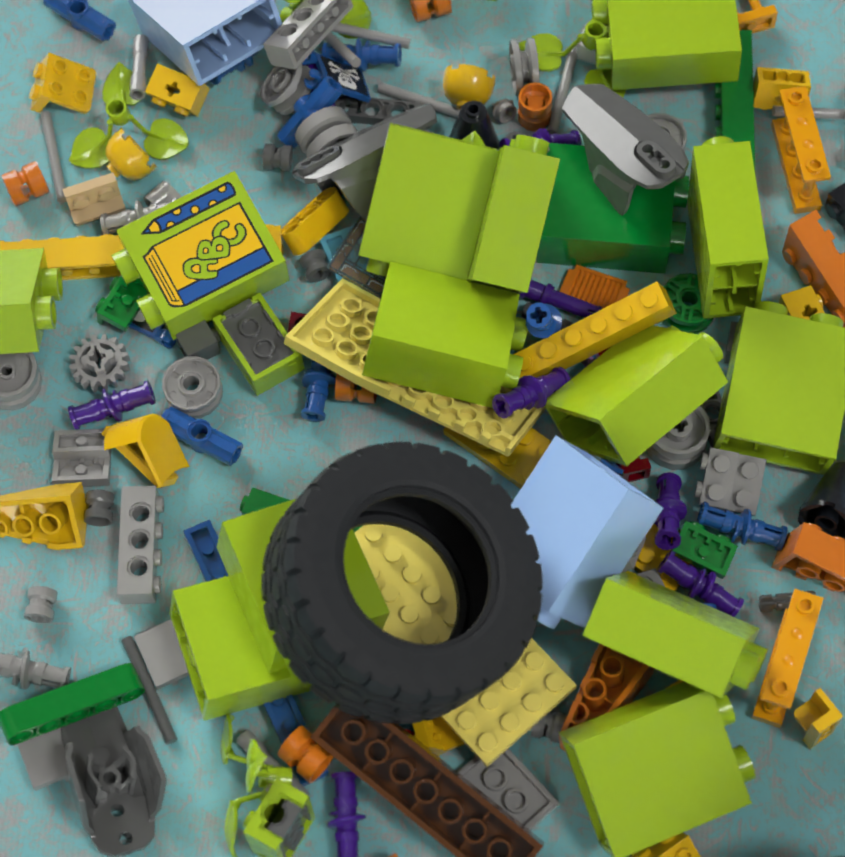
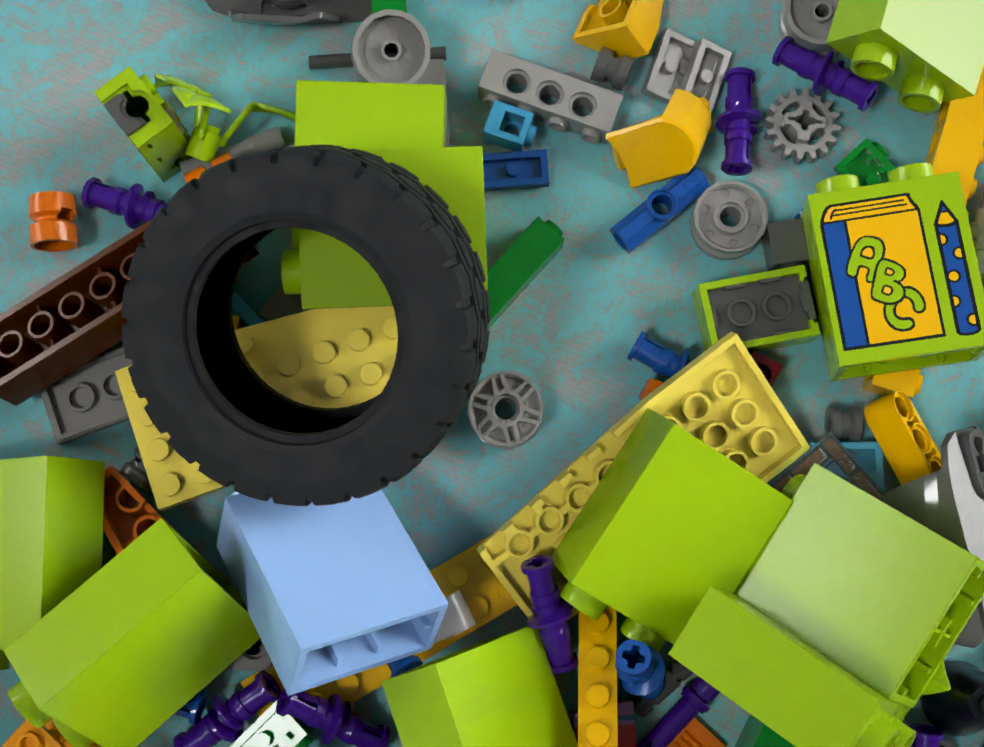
camera: 105 degrees right, 15 degrees up
(56, 352) = (825, 73): none -> dark purple piece
(148, 663) = (390, 28): none -> light grey wheel
(175, 575) = (509, 117): none -> dark azure brick

